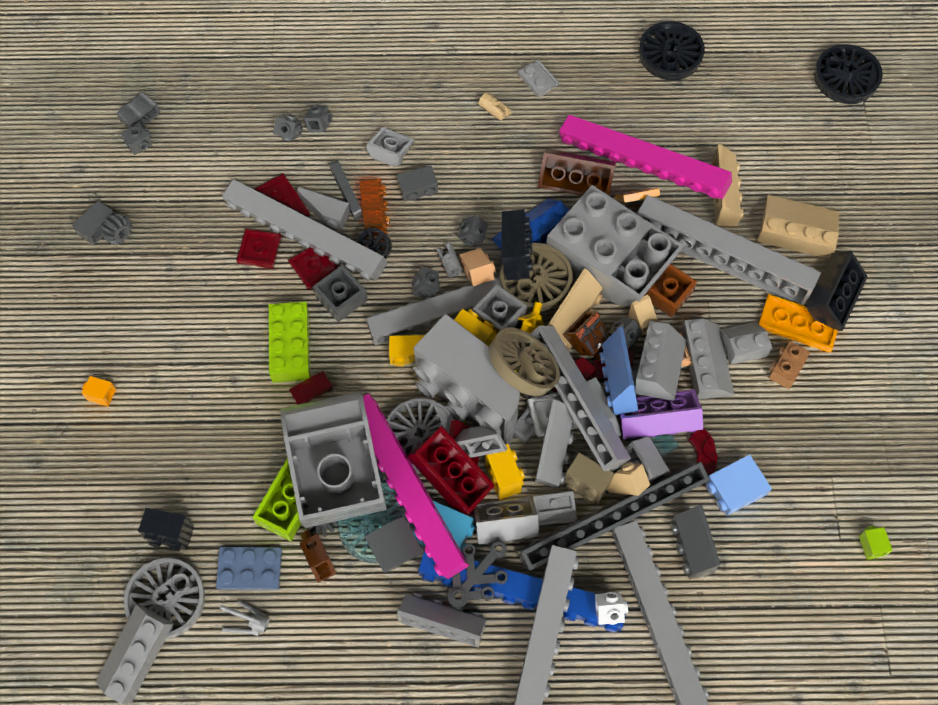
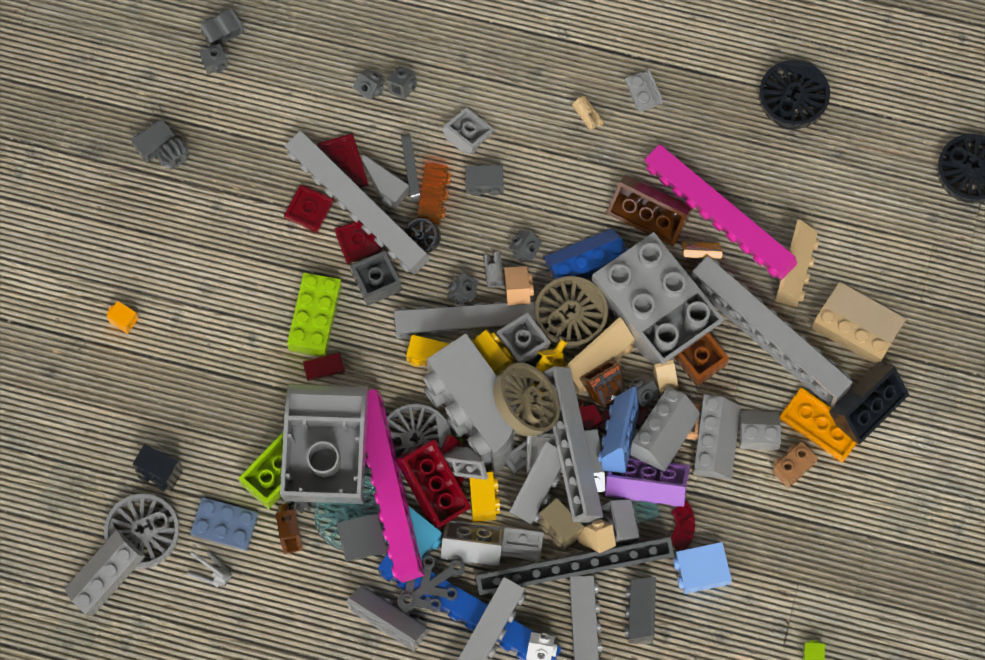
camera: 15 degrees right, 5 degrees up
(516, 245) = (557, 277): black brick -> none

